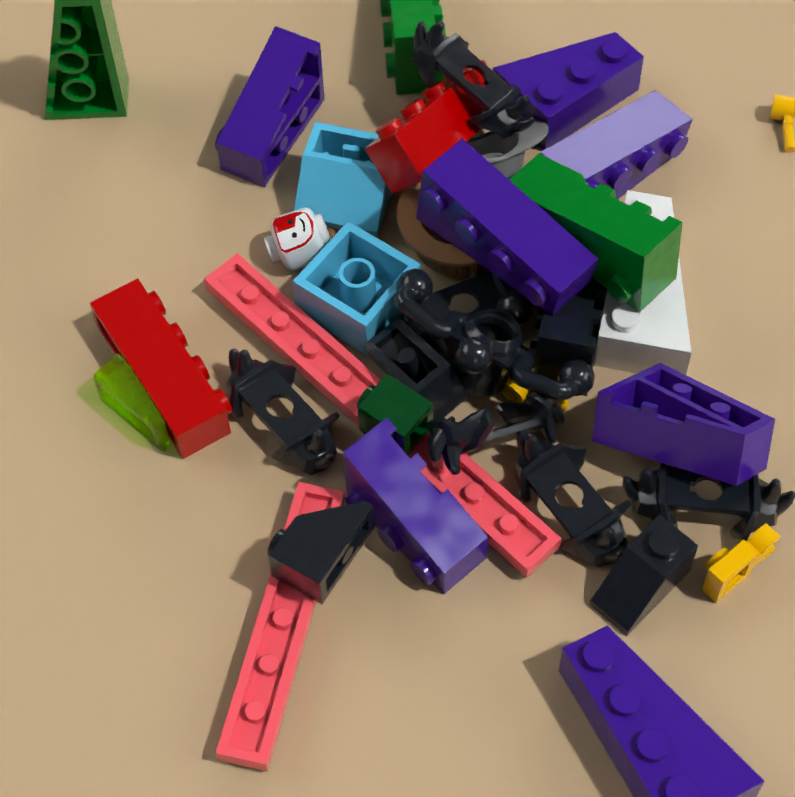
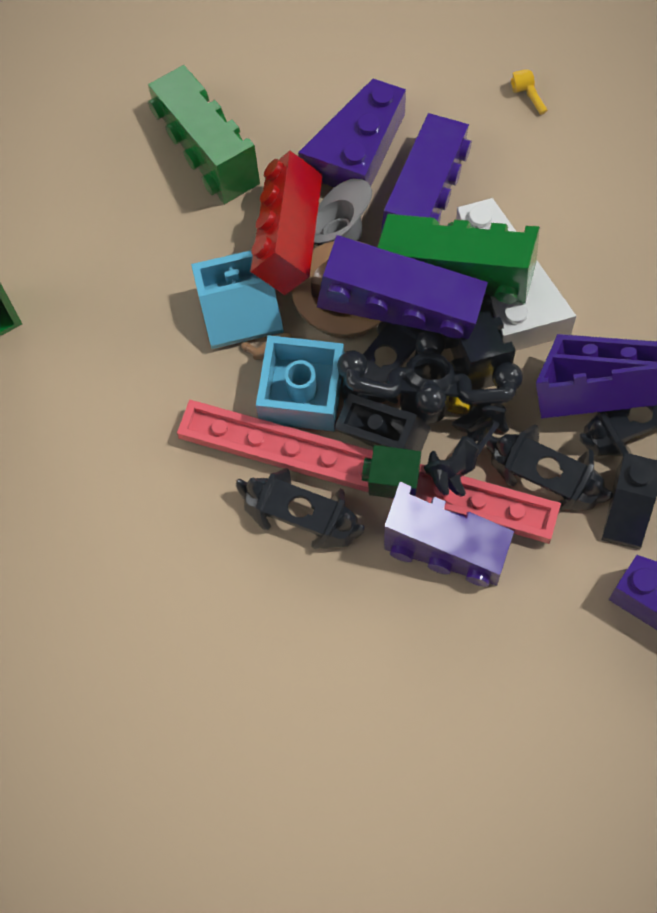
camera: 25 degrees left, 10 degrees up
(128, 399) = (176, 557): clear neon green slope -> none
(156, 353) = (188, 520): red brick -> none
(272, 107) = (143, 266): dark purple wedge -> none
(272, 656) = (401, 672): coral plate -> none
(297, 238) = (229, 364): head -> none
(320, 547) = (400, 604): black slope -> none
(499, 102) = (269, 163): black piece -> none

